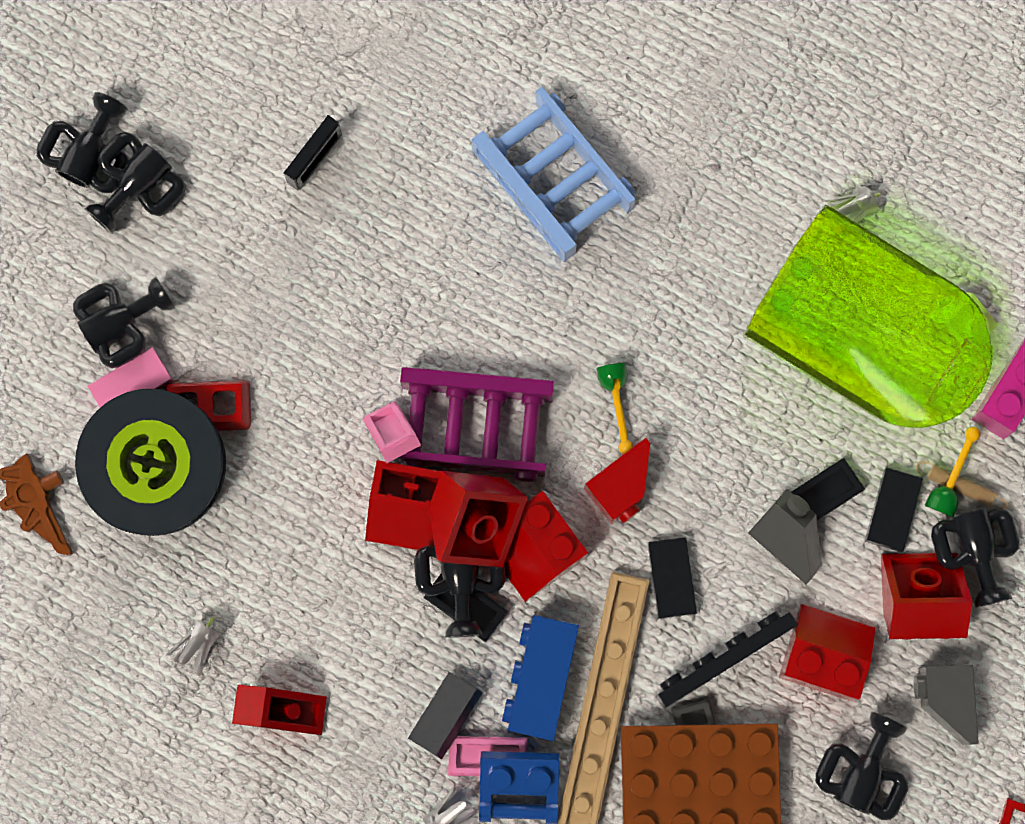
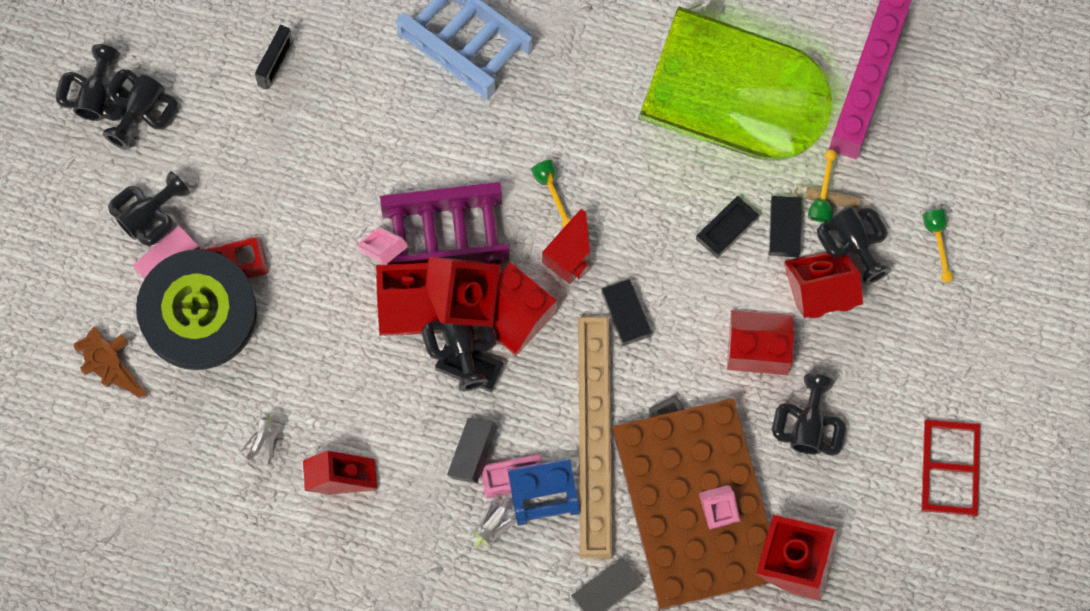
camera: 15 degrees left, 10 degrees down
(541, 677) = (541, 405): blue brick -> none
(738, 649) = (672, 369): black plate -> none
(791, 535) = (710, 257): dark grey slope -> none
(950, 699) = (861, 353): dark grey slope -> none

